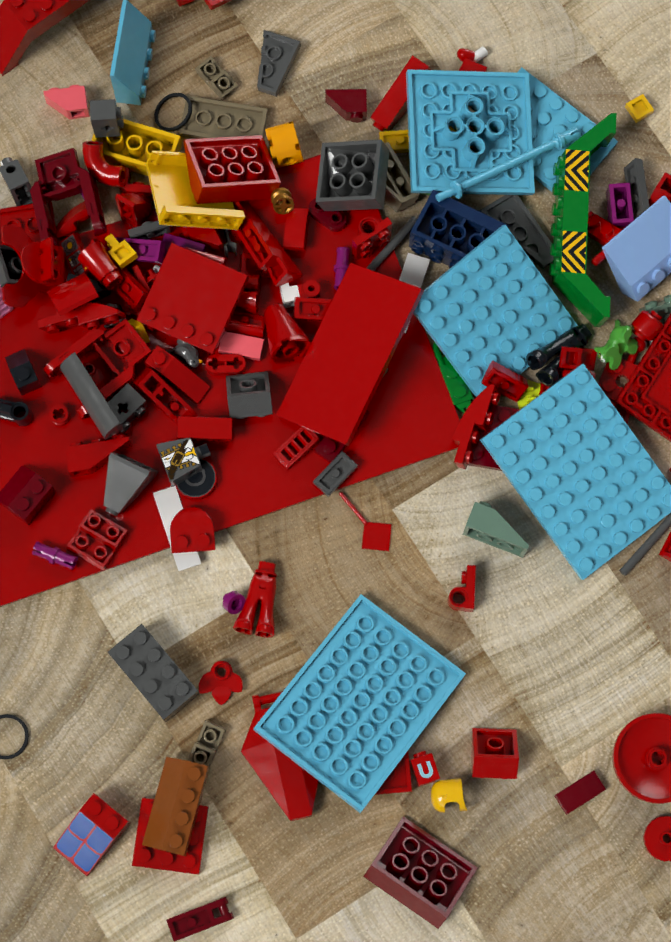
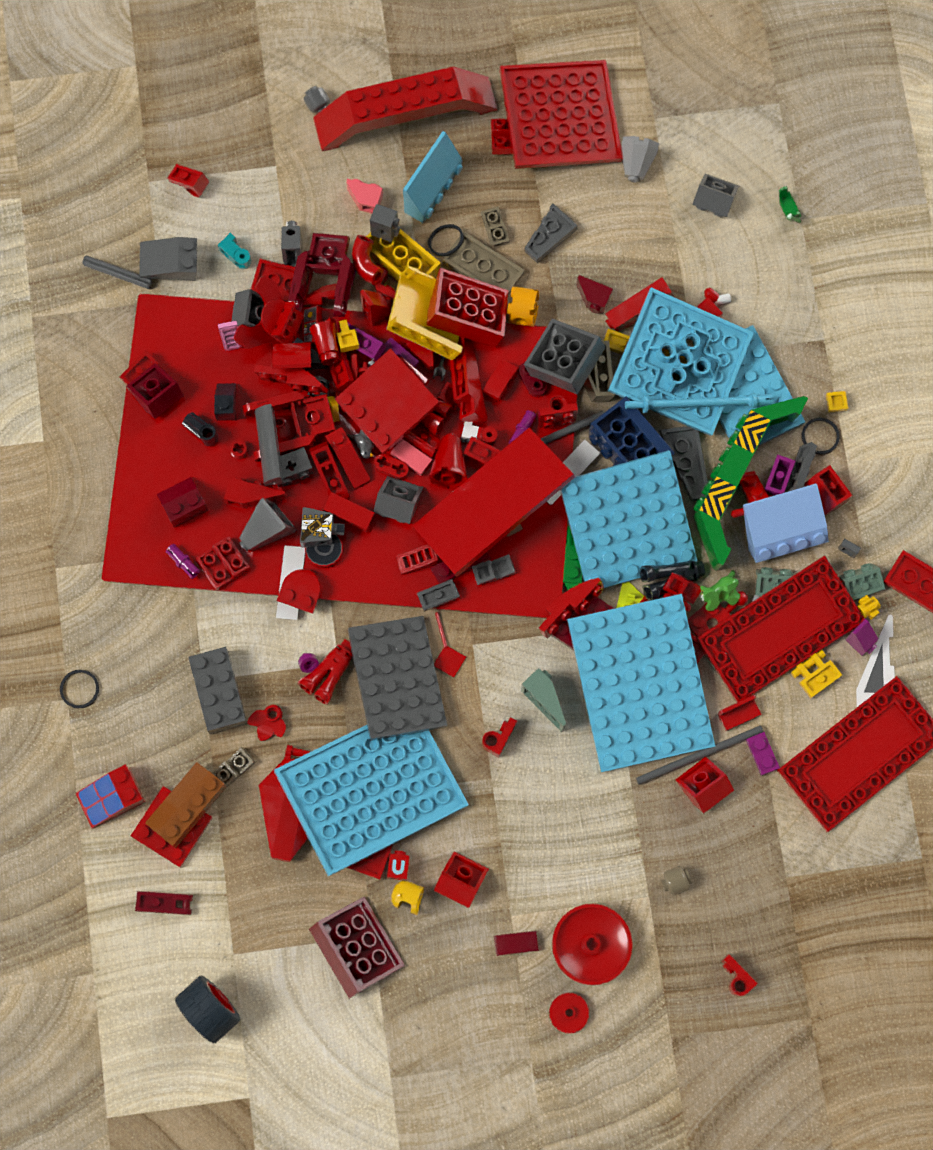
camera: 25 degrees right, 0 degrees up
(149, 230) = (378, 329): dark grey plate -> none
(284, 206) = (499, 352): pearl gold wheel -> none
(332, 577) = (397, 678): none -> dark grey plate
(379, 423) = (493, 570): none -> dark grey slope
(506, 381) = (613, 580): red slope -> none
(639, 132) = (825, 420): none -> black piece
(647, 325) = (753, 586): red head -> none

